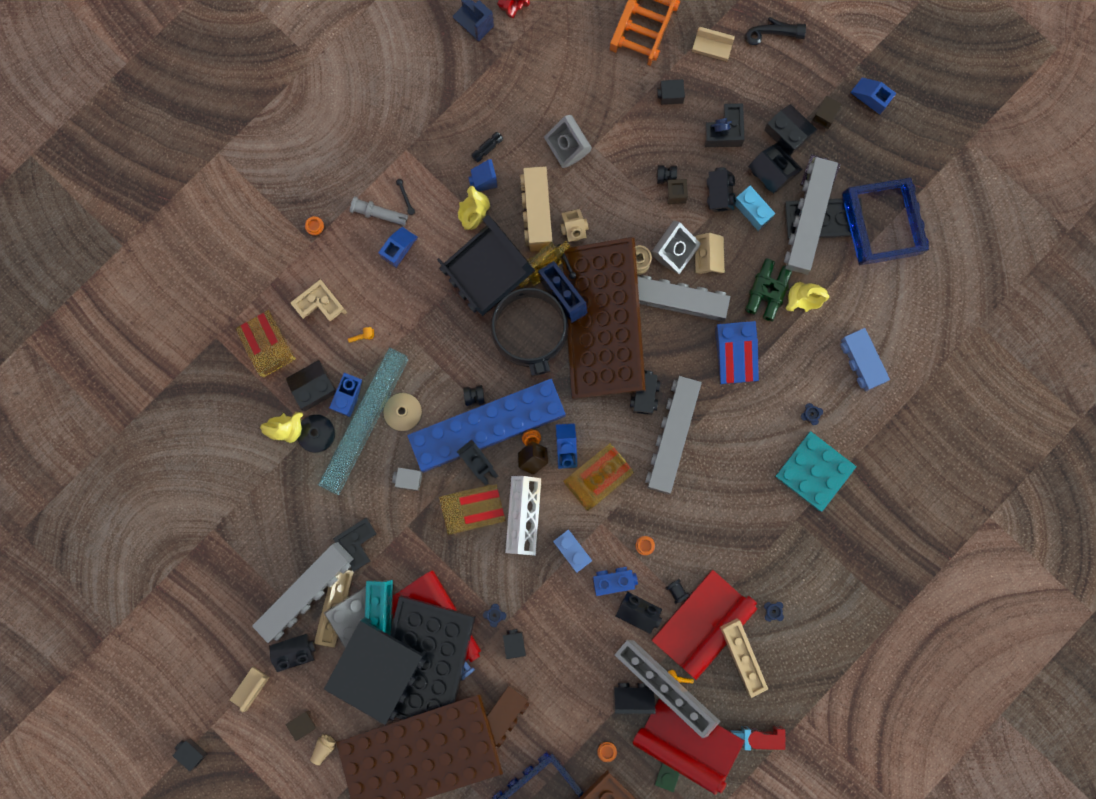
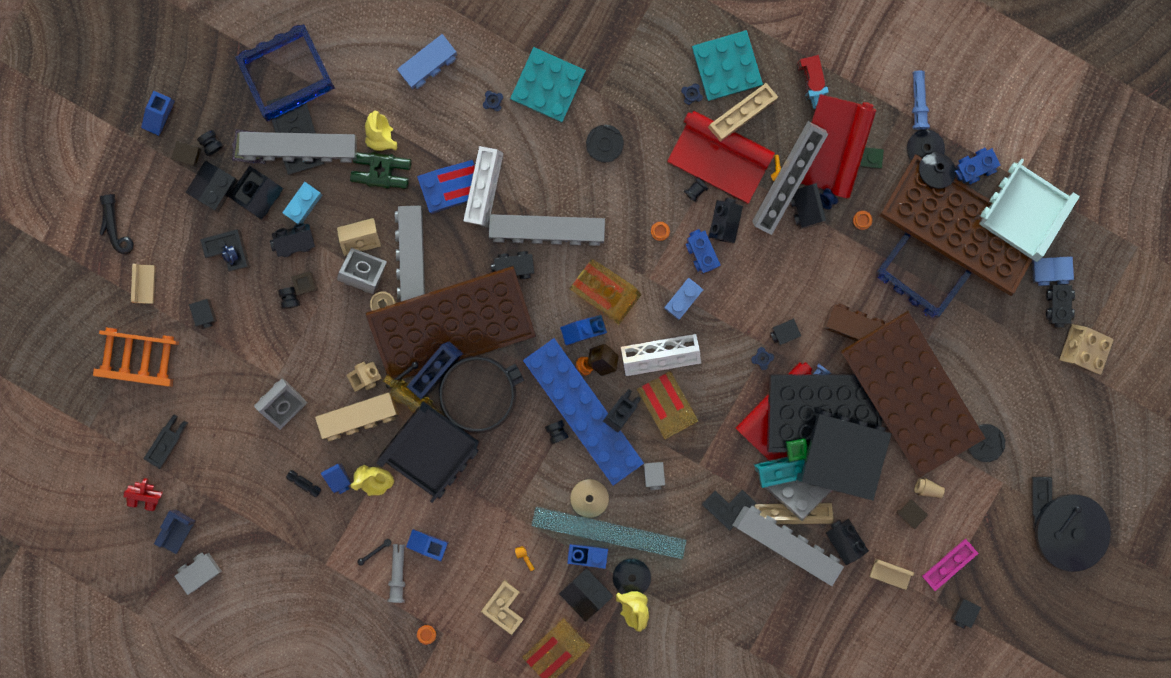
camera: 105 degrees left, 5 degrees up
(242, 751) = (950, 564): none -> dark pink plate
(394, 624) = (796, 450): none -> green tile
(428, 30) = (197, 573): none -> light grey brick
(558, 29) = (165, 443): none -> black hinge
(636, 722) = (828, 199): none -> dark blue plate
(730, 384) = (483, 186): none -> white fence
(744, 513) = (604, 143): none -> black tile
(794, 654) = (727, 65): none -> teal plate
(833, 136) = (209, 142): none -> black wheel

